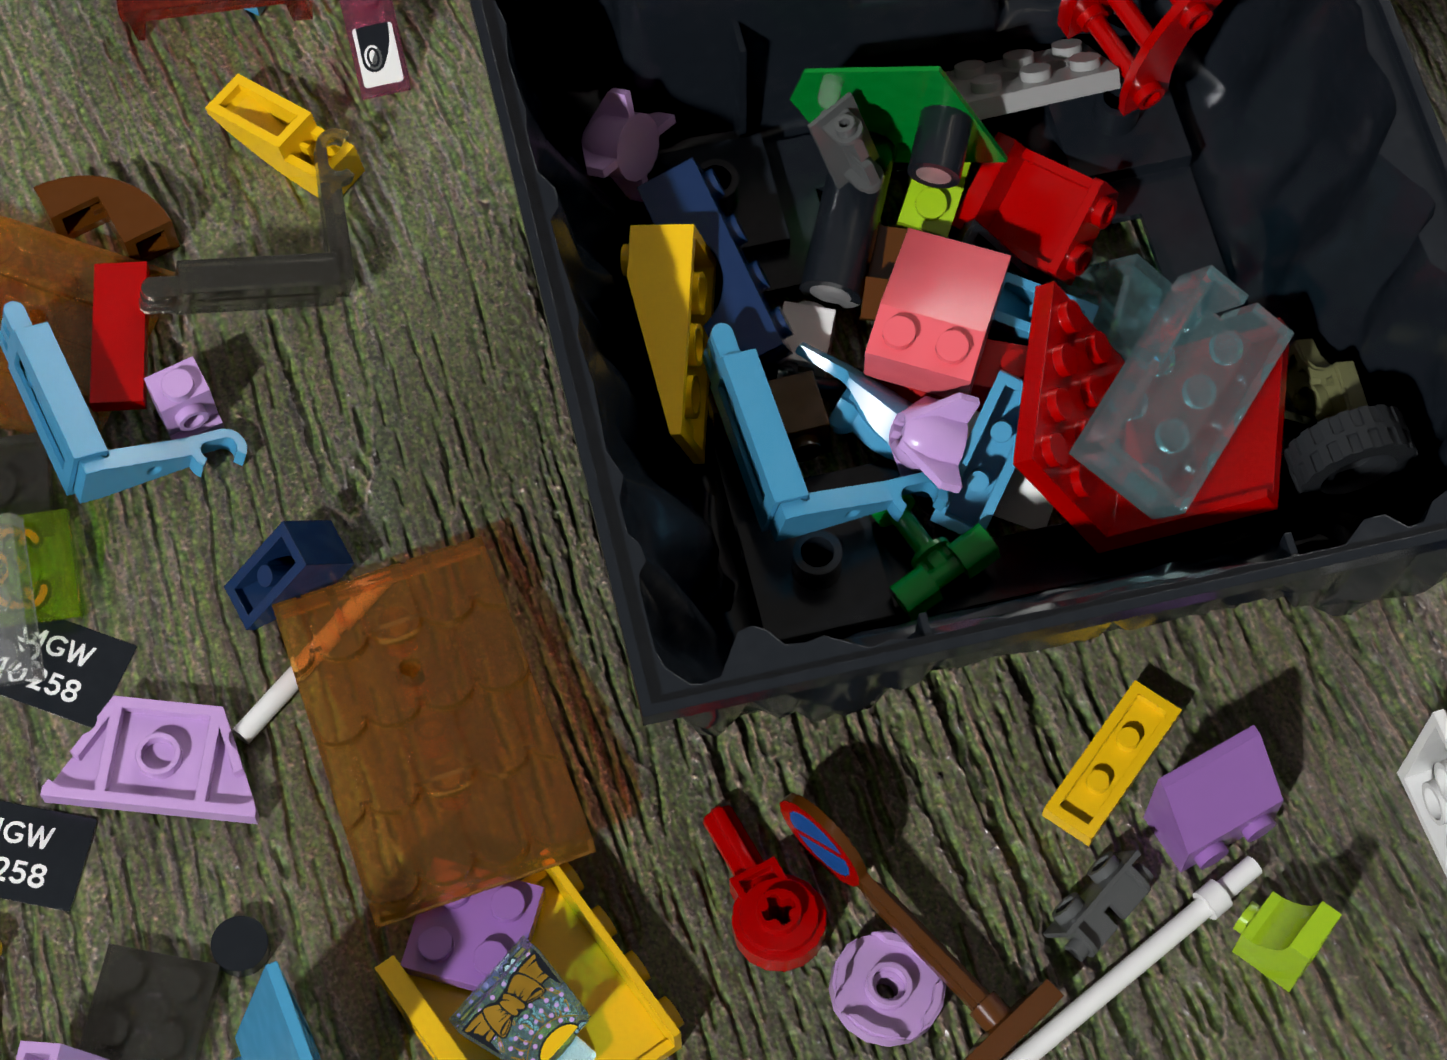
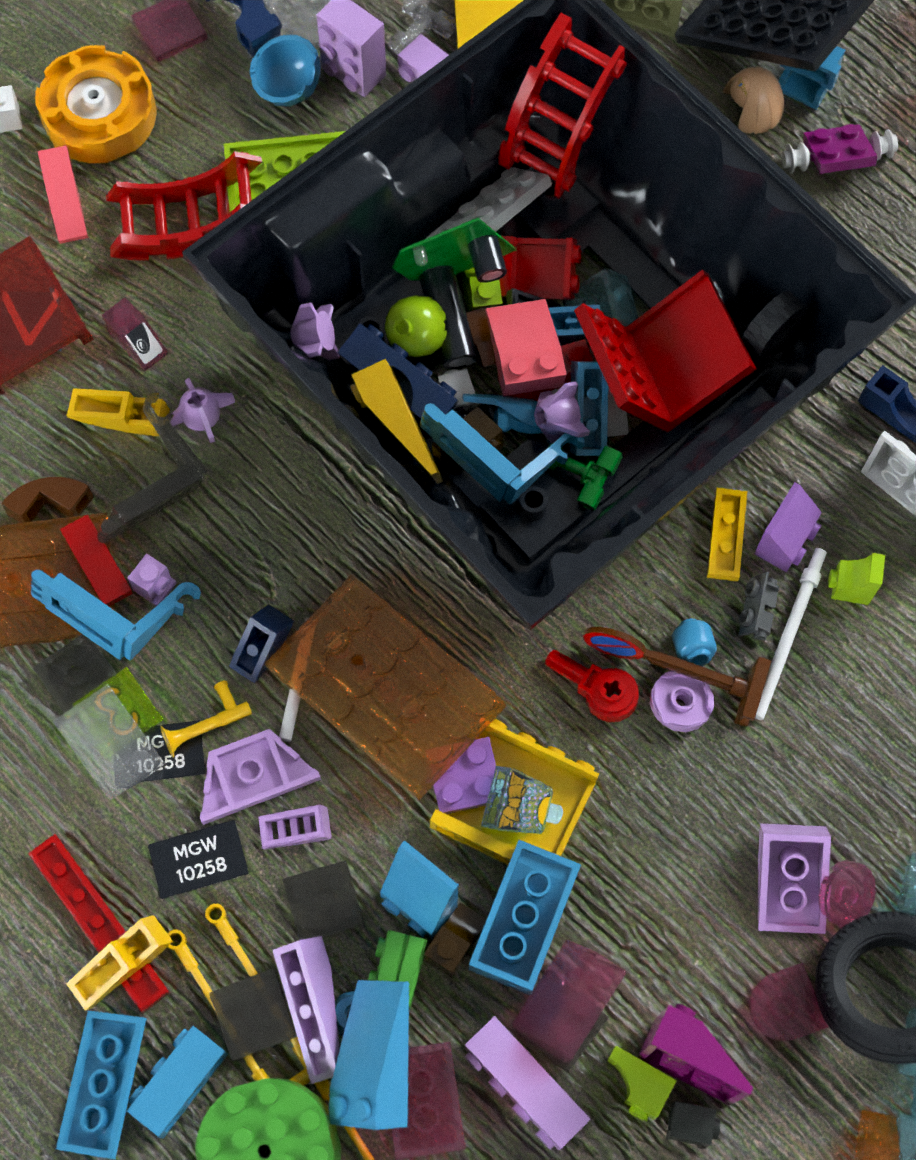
camera: 30 degrees left, 5 degrees up
(185, 658) = (232, 713): none -> yellow piece
(209, 889) = (322, 824): none -> lavender slope
(240, 946) = (349, 845): black tile -> none
(406, 188) = (200, 408): none -> lavender piece
(784, 205) = (416, 325): none -> lime cylinder
(847, 146) = (438, 280): dark grey hinge -> none
(959, 905) = (694, 642): none -> dark azure head
(1181, 393) = (679, 331): clear light blue piece -> none
(1319, 386) = (738, 295): olive tile -> none

